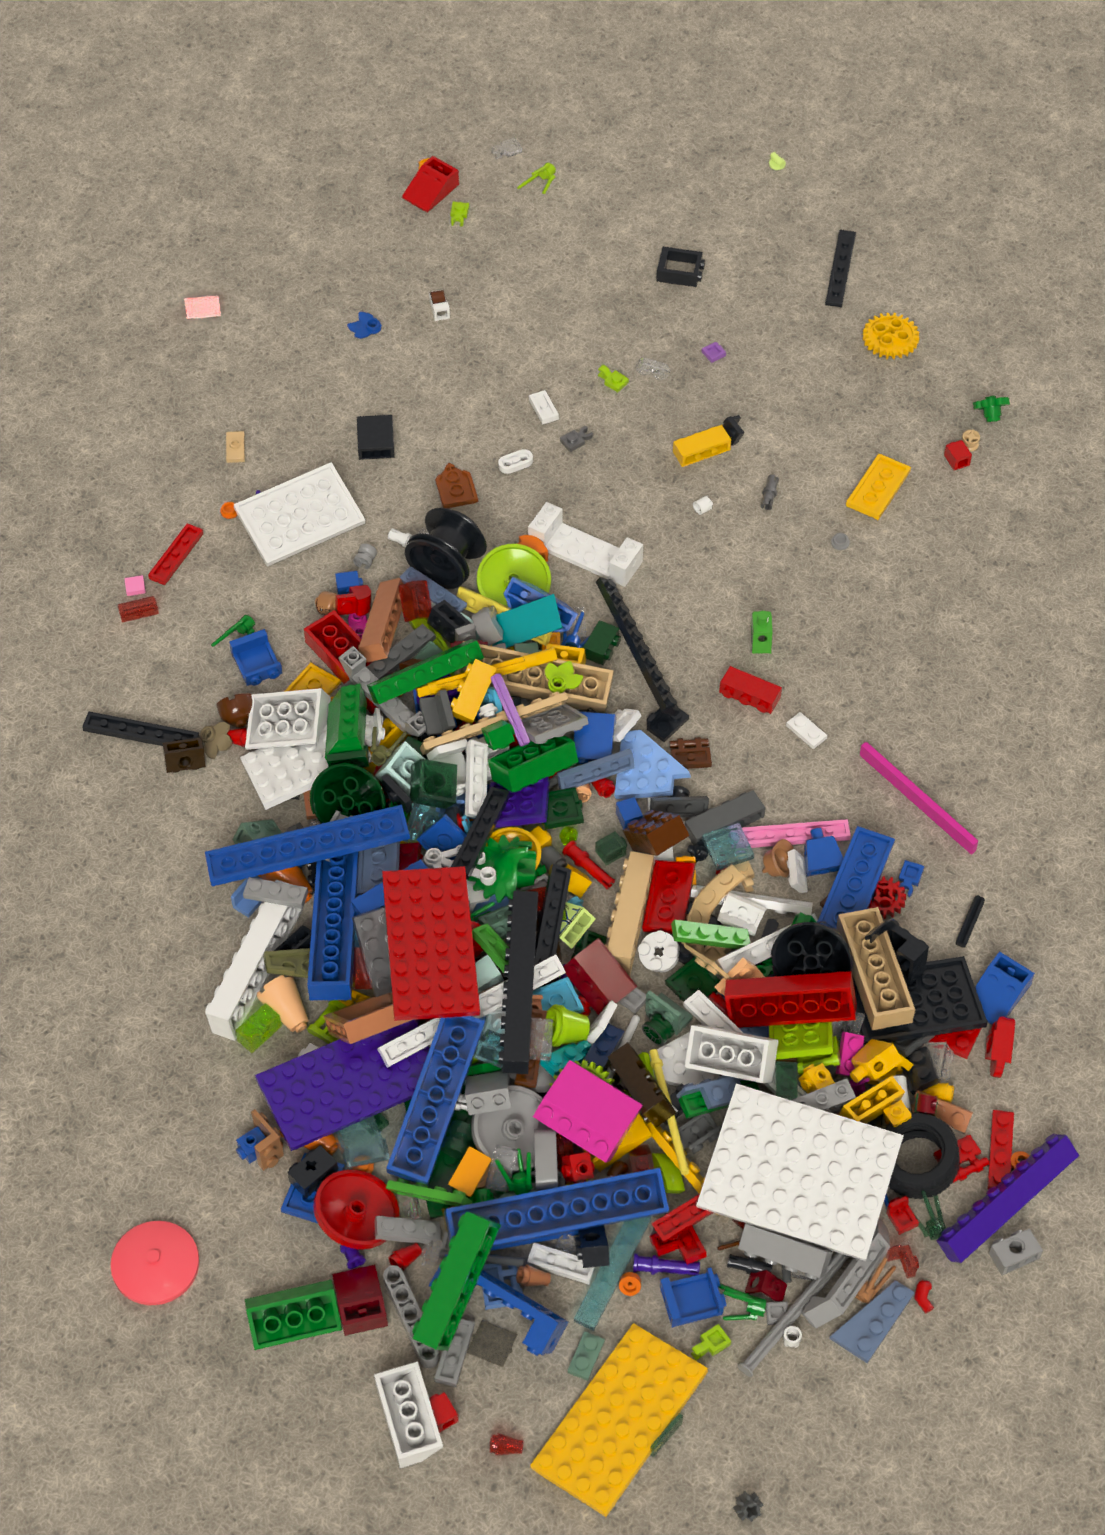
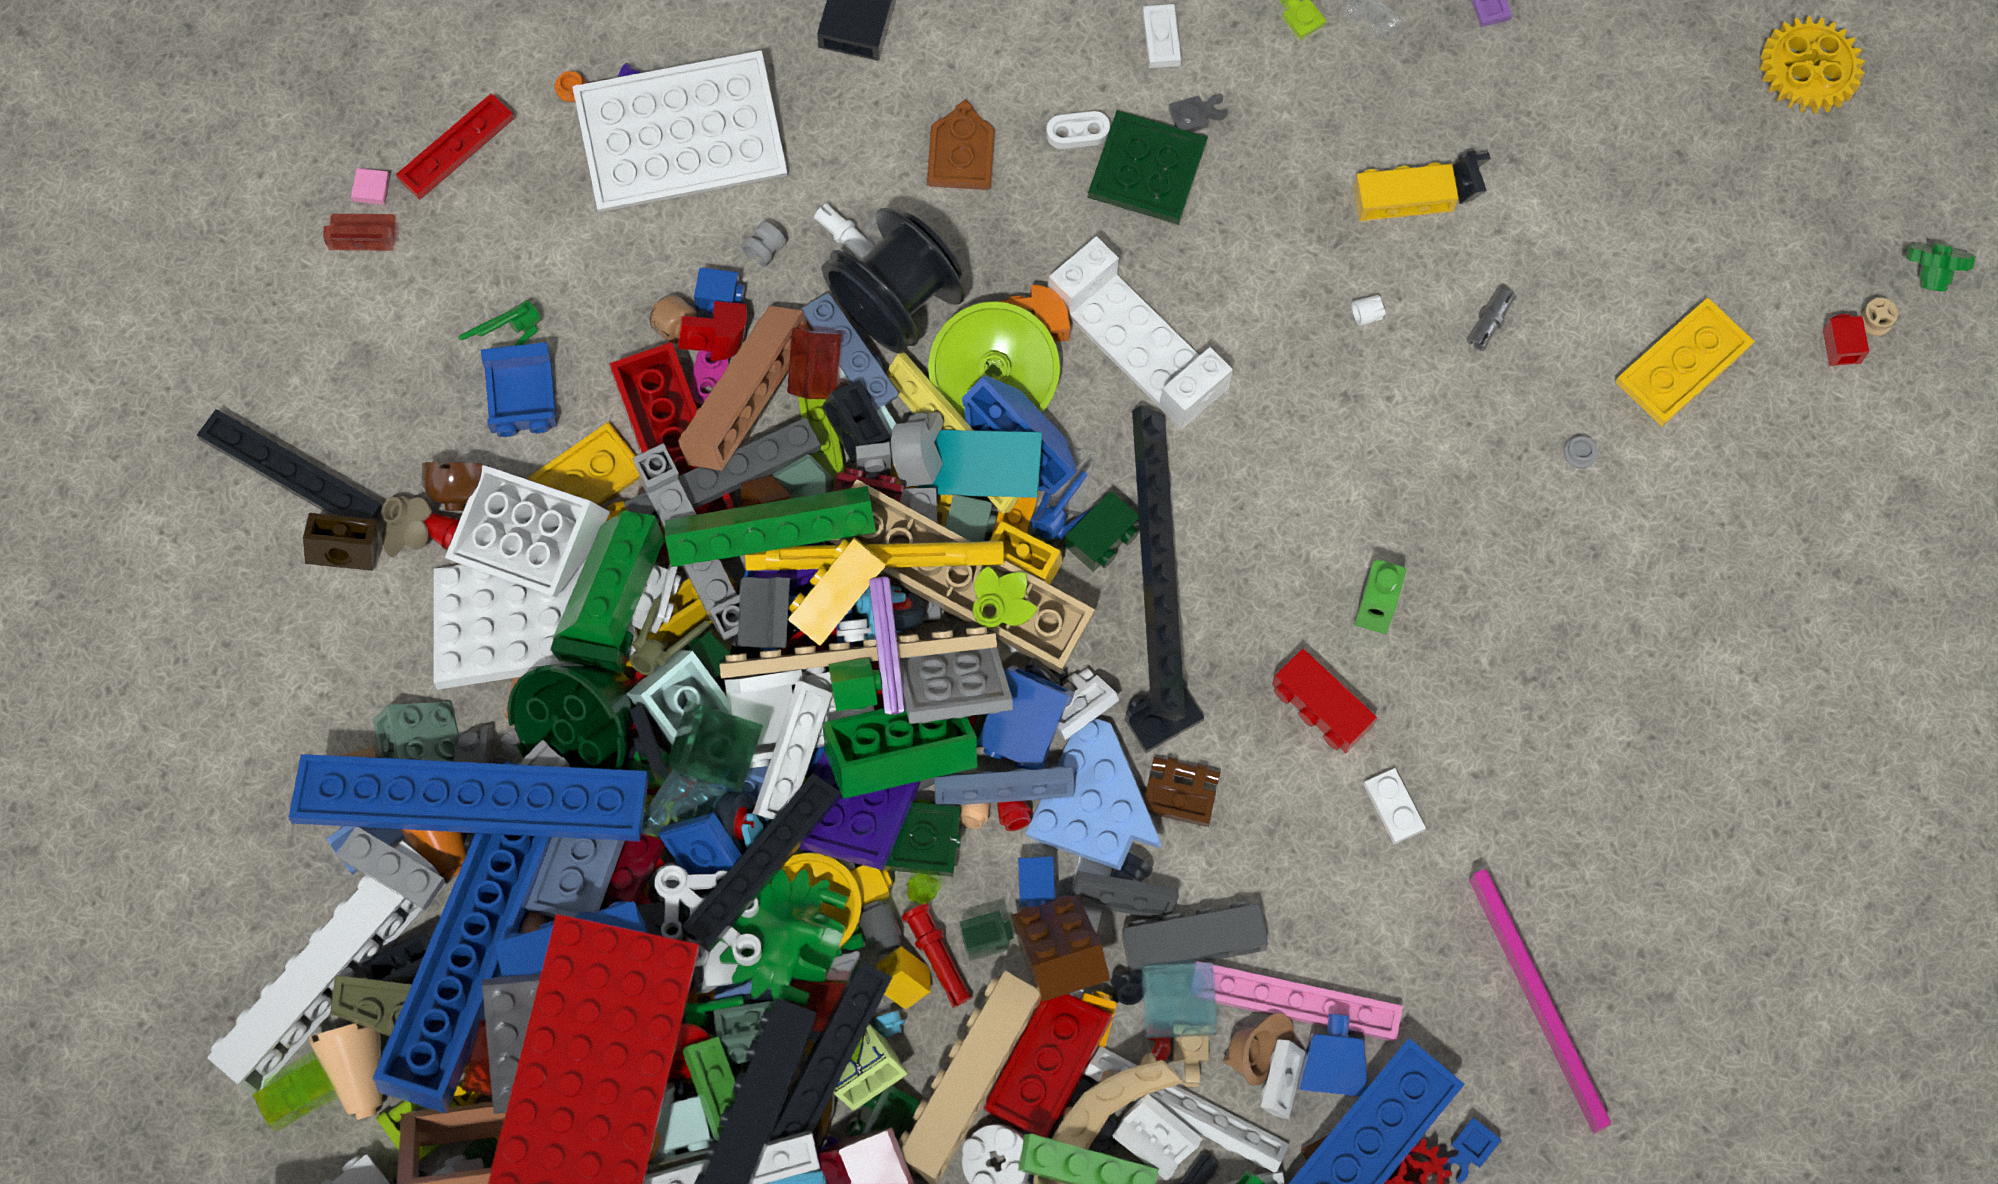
camera: 15 degrees right, 15 degrees up
(560, 469) = (1147, 167): none -> dark green plate

